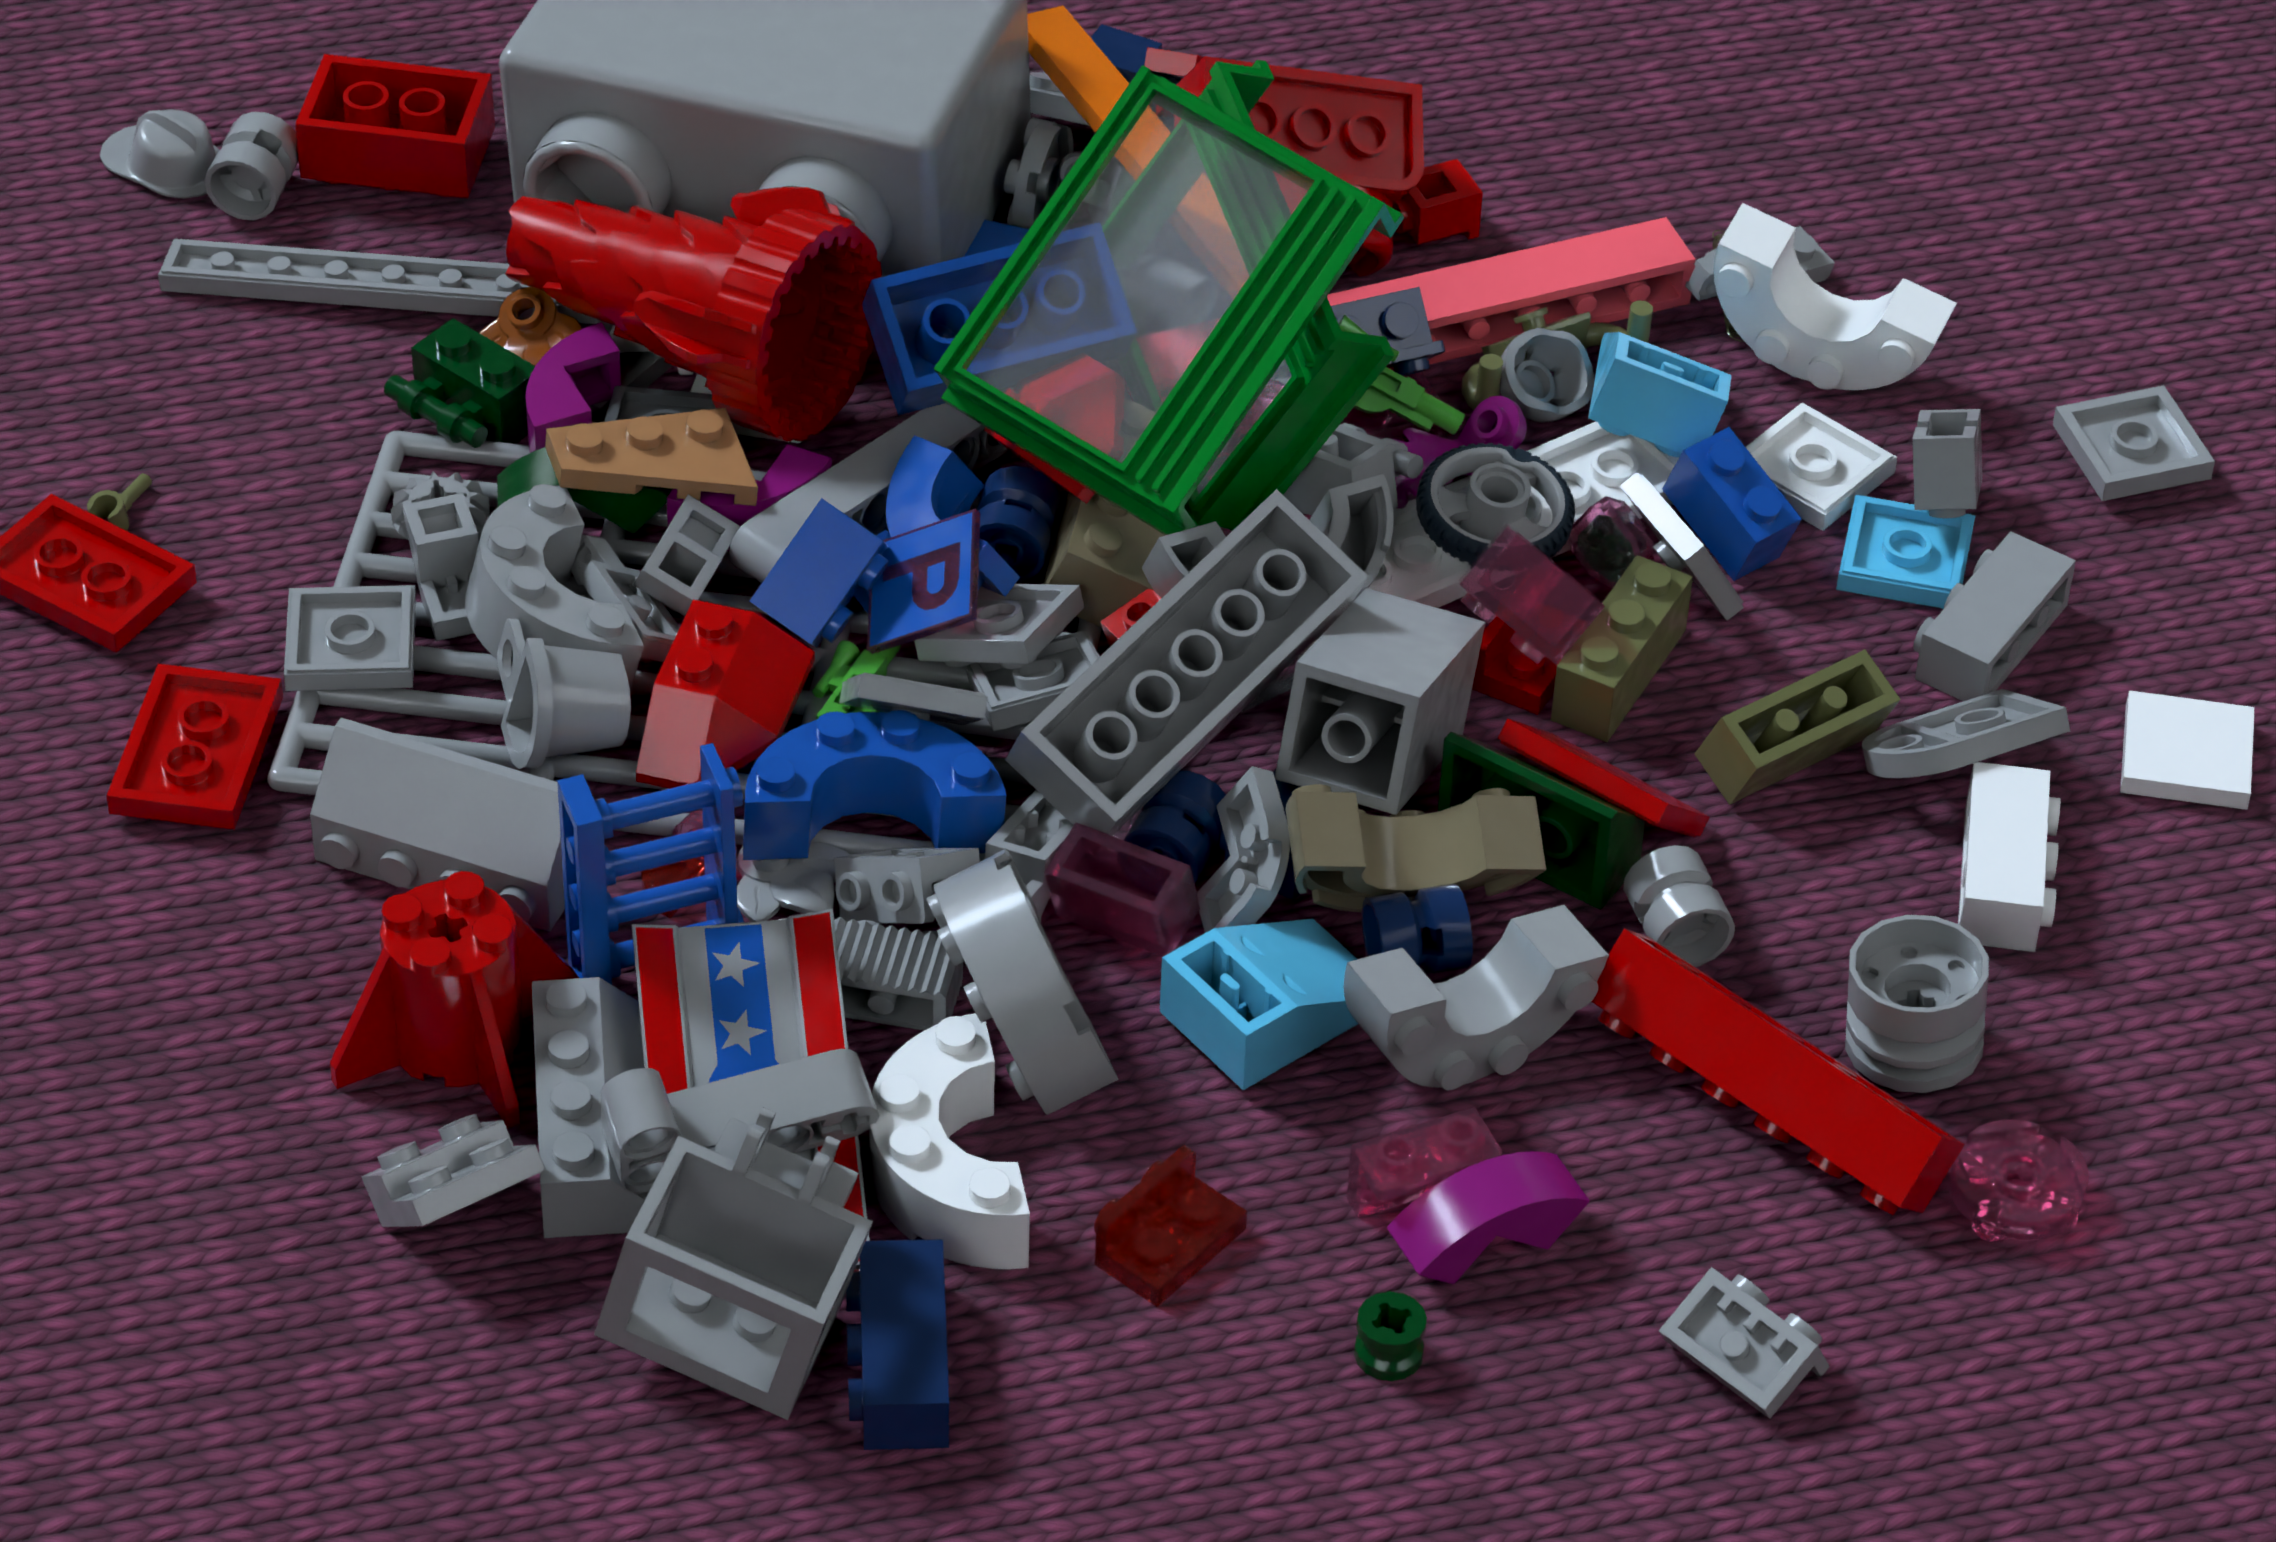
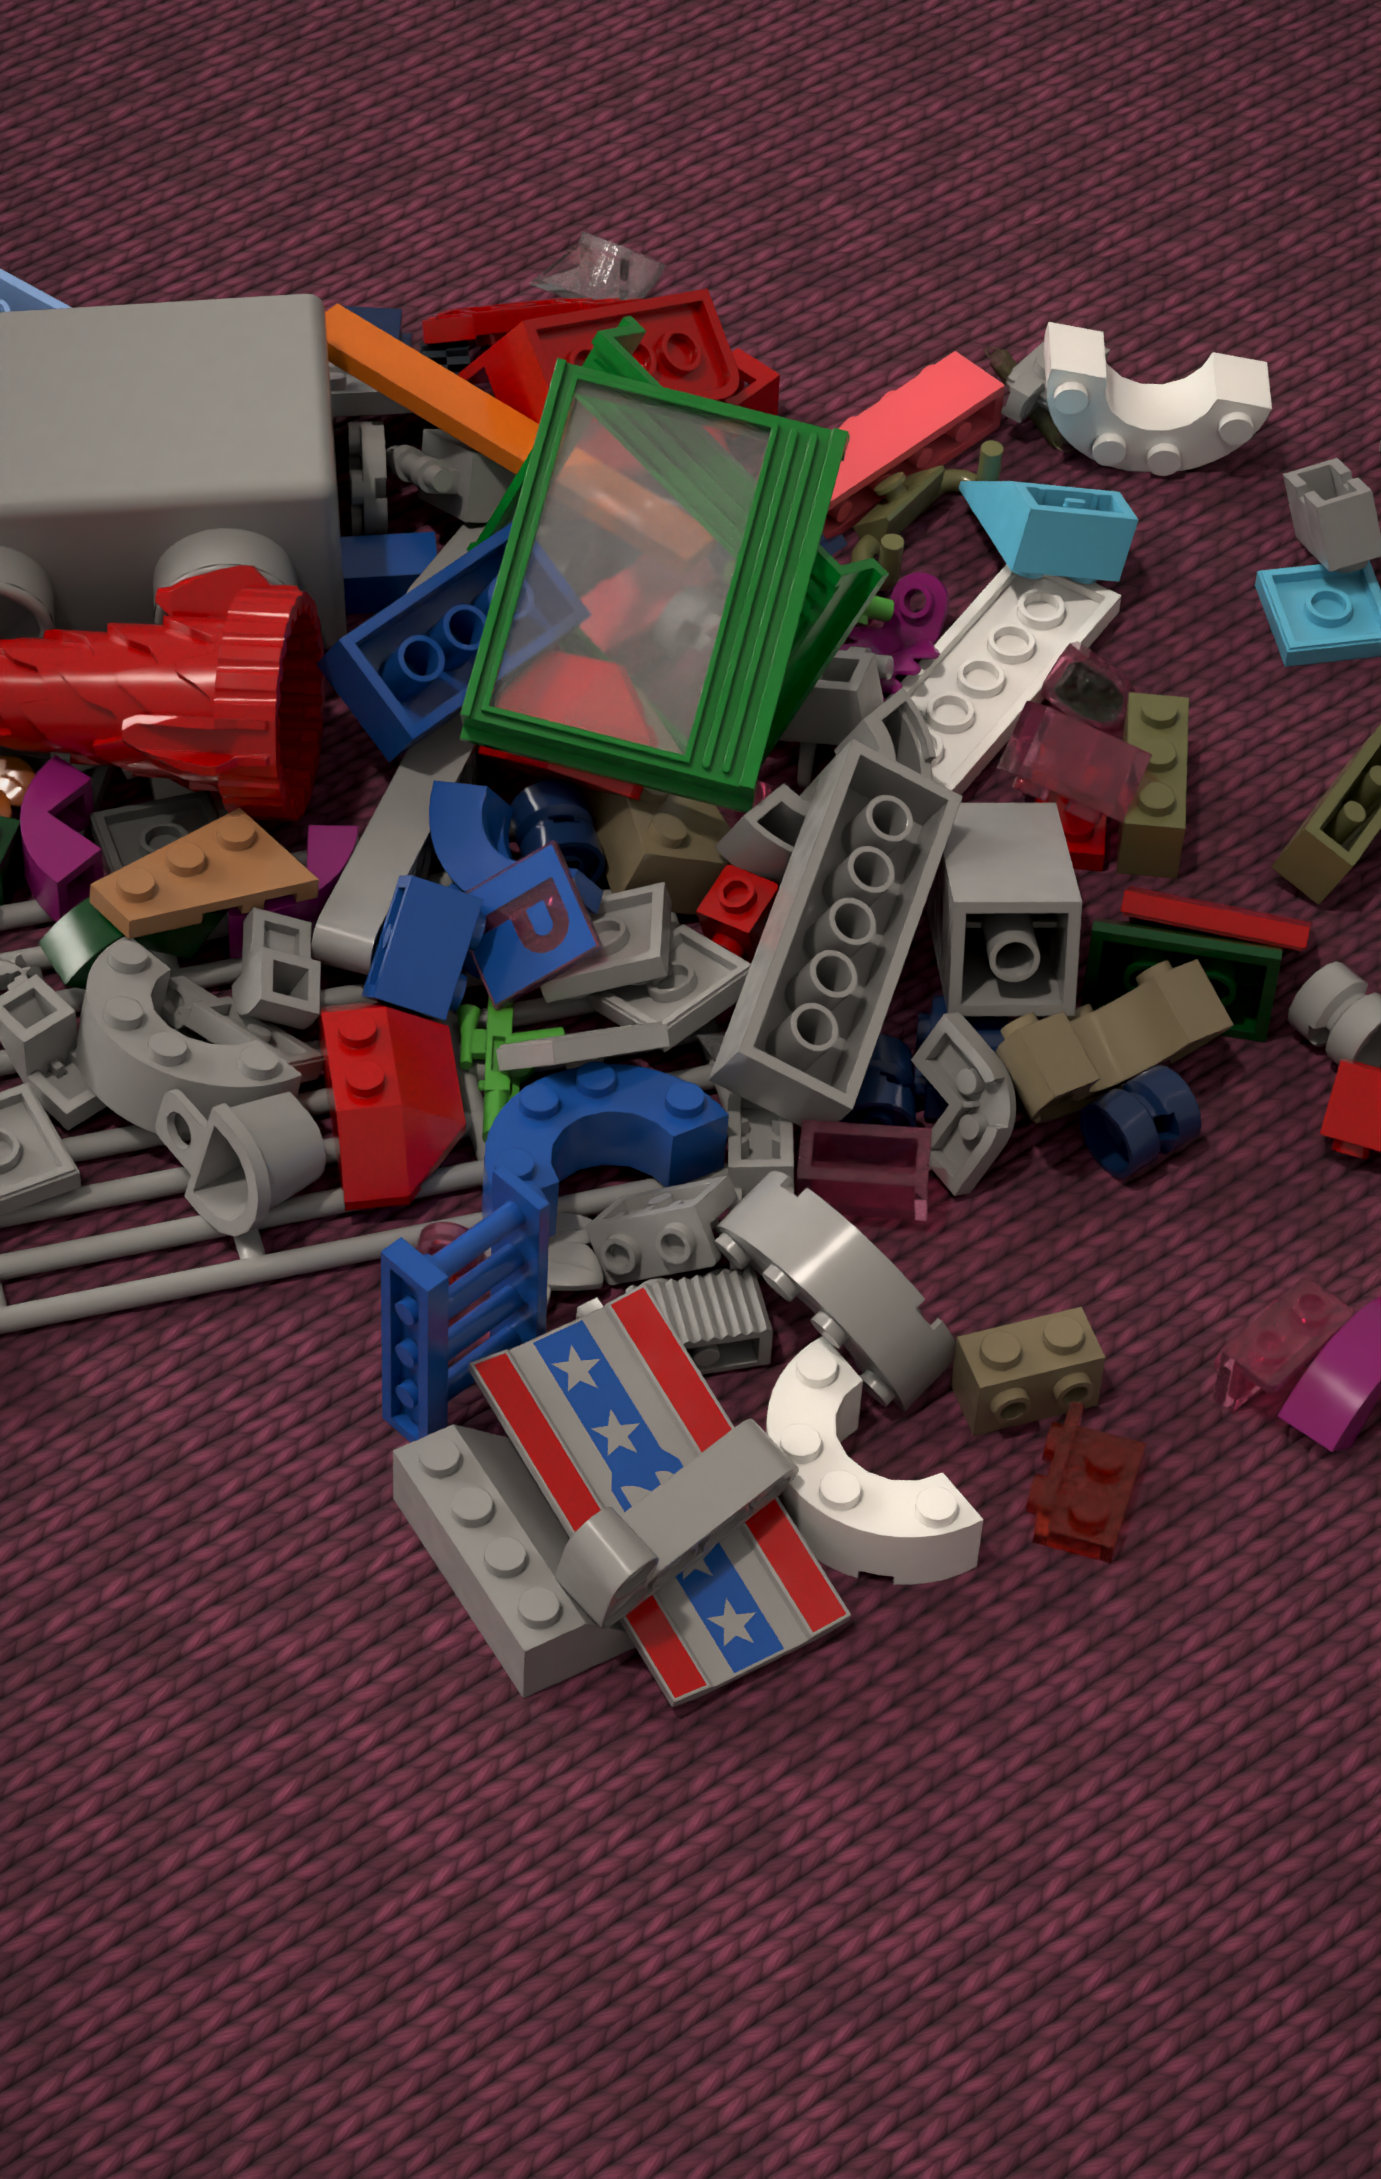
camera: 25 degrees left, 5 degrees up
(429, 812) = (207, 1318): light grey slope -> none
(448, 1175) = (426, 1672): light grey plate -> none
(449, 991) = (319, 1487): red brick -> none
(738, 1264) = (757, 1665): light grey piece -> none
(899, 1345) = (925, 1686): dark blue brick -> none
(1166, 1103) = (1027, 1370): none -> dark tan brick
(1257, 994) = (1044, 1228): medium azure slope -> none
(1377, 1345) = (1346, 1534): dark green wheel -> none
(1379, 55) = (600, 271): none -> clear slope
(1485, 1016) = (1248, 1179): light grey brick -> none
(1494, 497) = (978, 683): light grey wheel -> none
(1531, 382) = (937, 532): light grey helmet -> none
(1680, 547) = (1155, 668): light grey plate -> none
(1731, 503) = (1171, 615): blue brick -> none
(1820, 464) = (1200, 554): white tile -> none

